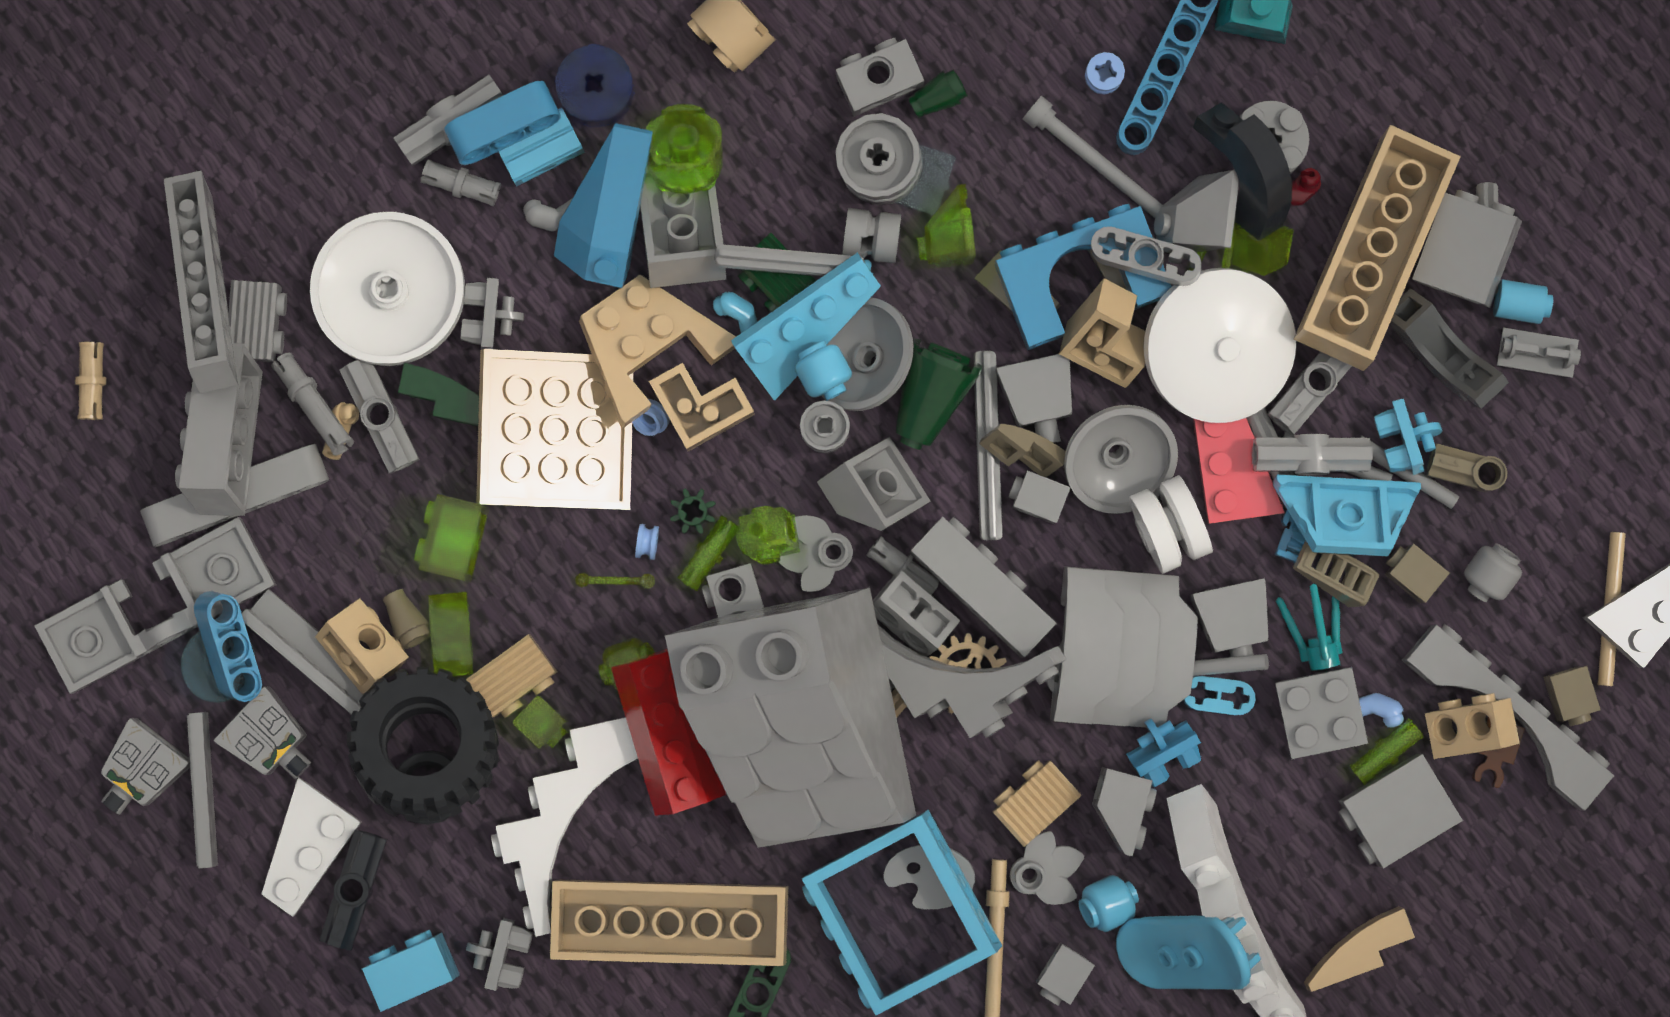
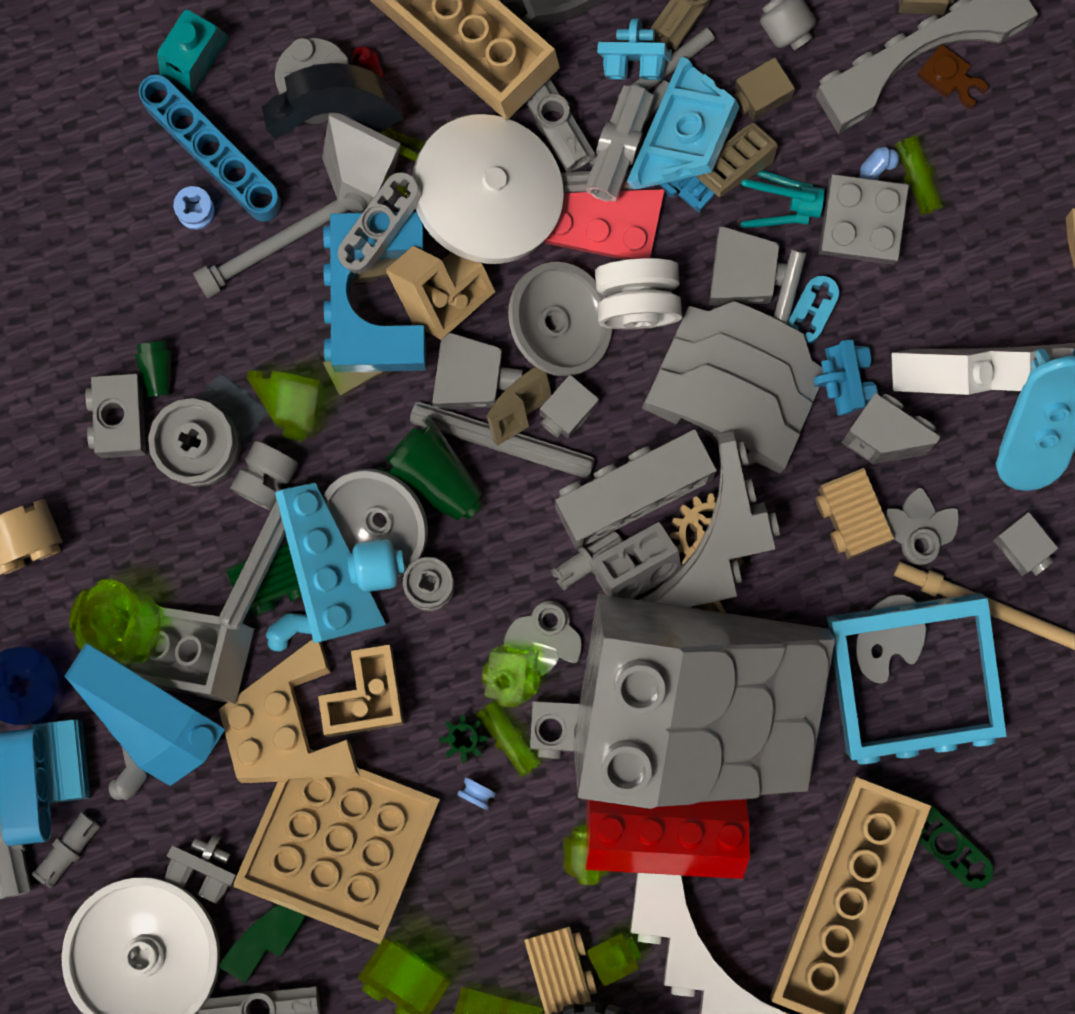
camera: 65 degrees left, 5 degrees down
(646, 581) = (513, 808): clear neon green hinge -> none
(653, 420) = (363, 746): light blue plate -> none
(874, 487) = (503, 559): light grey slope -> none
(1108, 903) = (973, 480): medium azure head -> none
(1263, 255) = (417, 124): clear neon green panel -> none
(1398, 811) = (979, 183): light grey brick -> none
(1472, 729) = (931, 88): tan brick -> none

